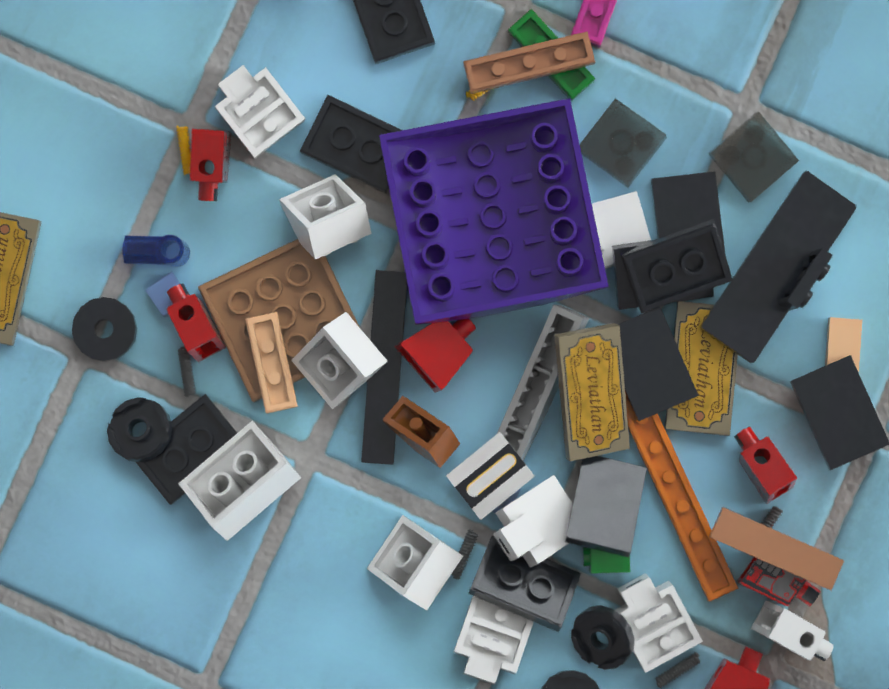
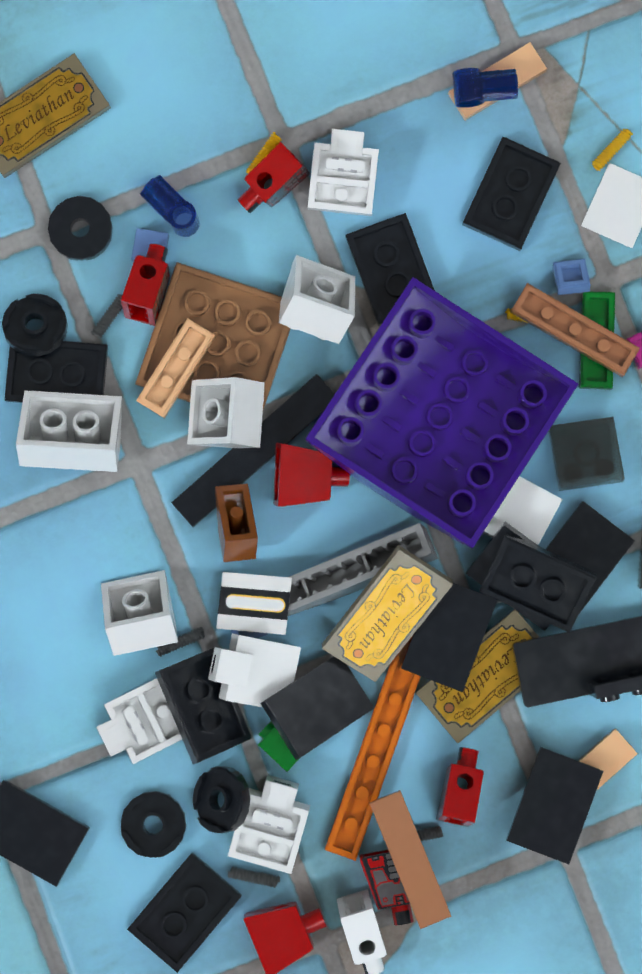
camera: 40 degrees right, 0 degrees up
(489, 27) = (571, 276): none -> medium blue tile

